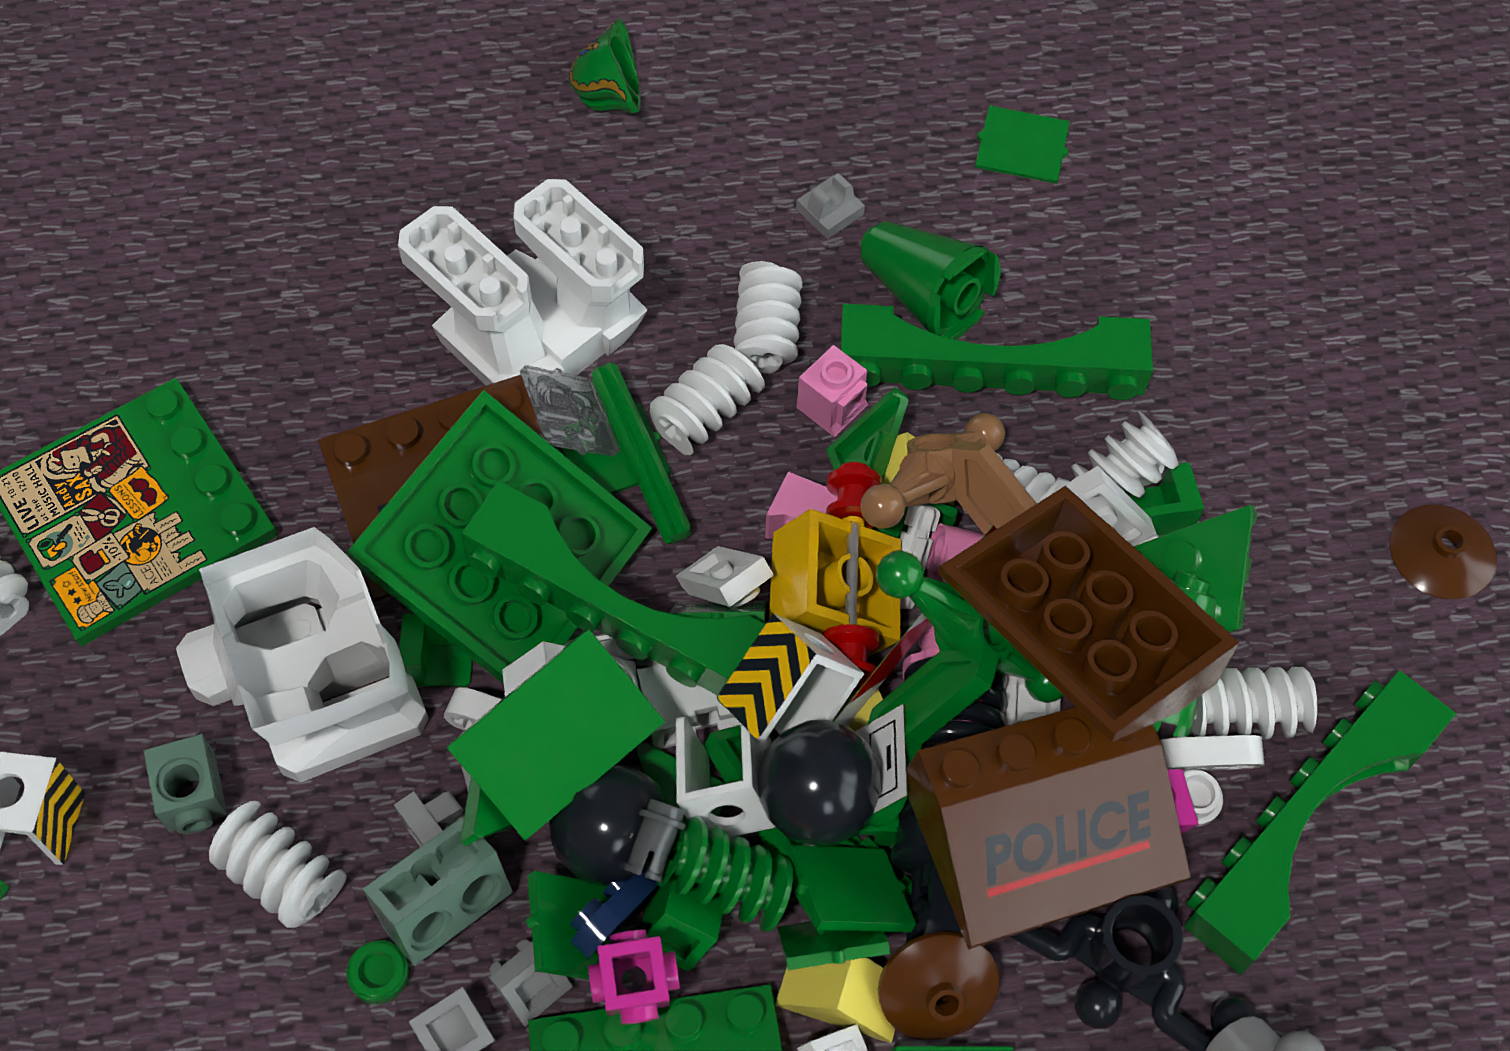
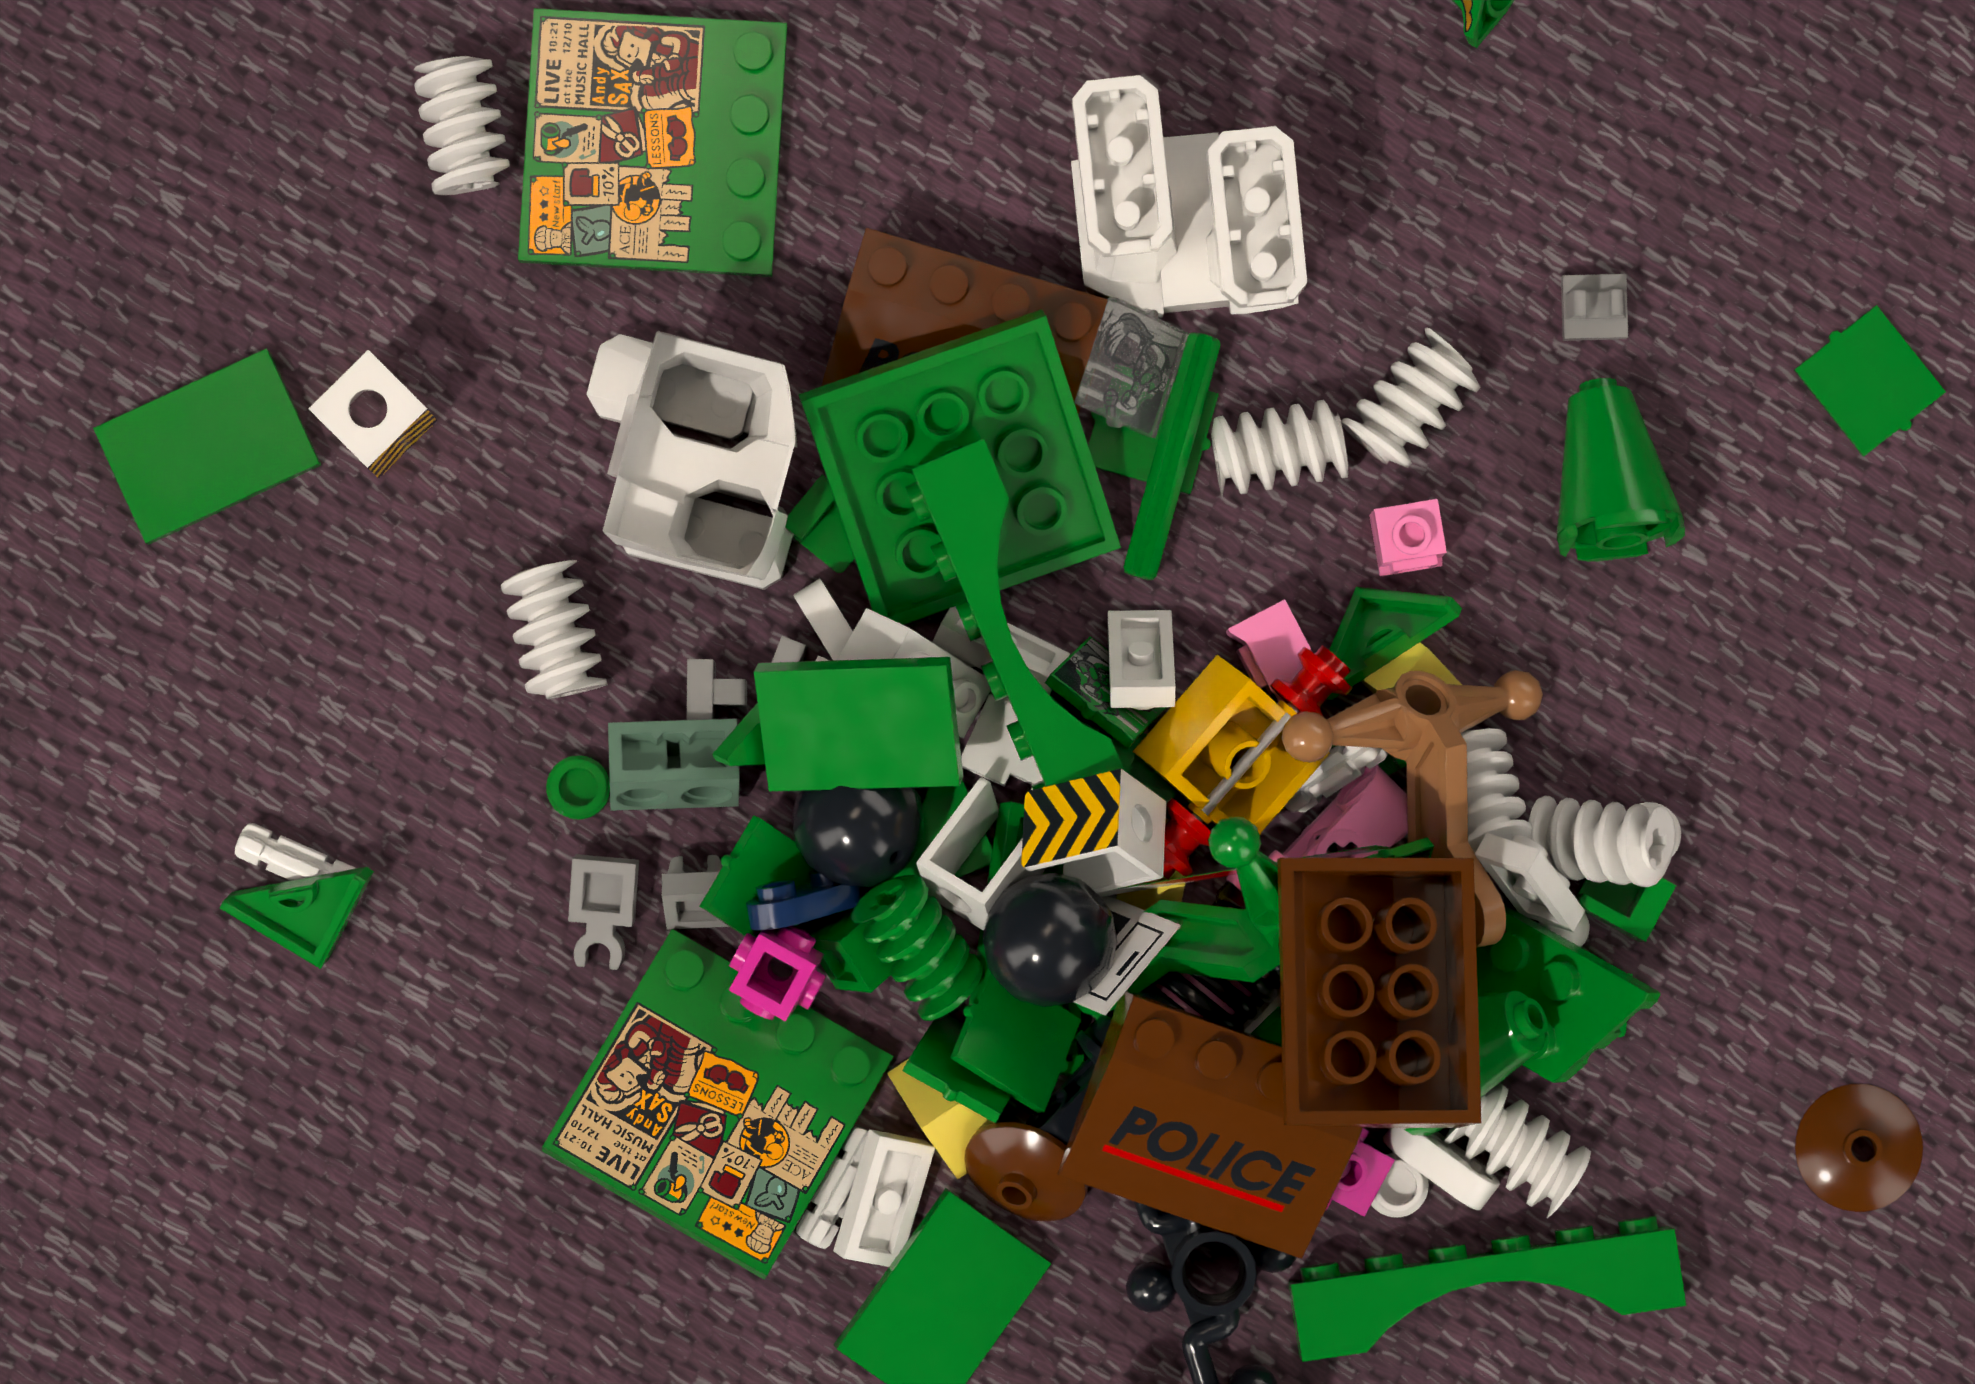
camera: 45 degrees right, 25 degrees up
(173, 766) = (520, 463): sand green brick -> none
(655, 835) = (876, 878): dark grey pin -> none
(1105, 360) = (1713, 708): green arch -> none

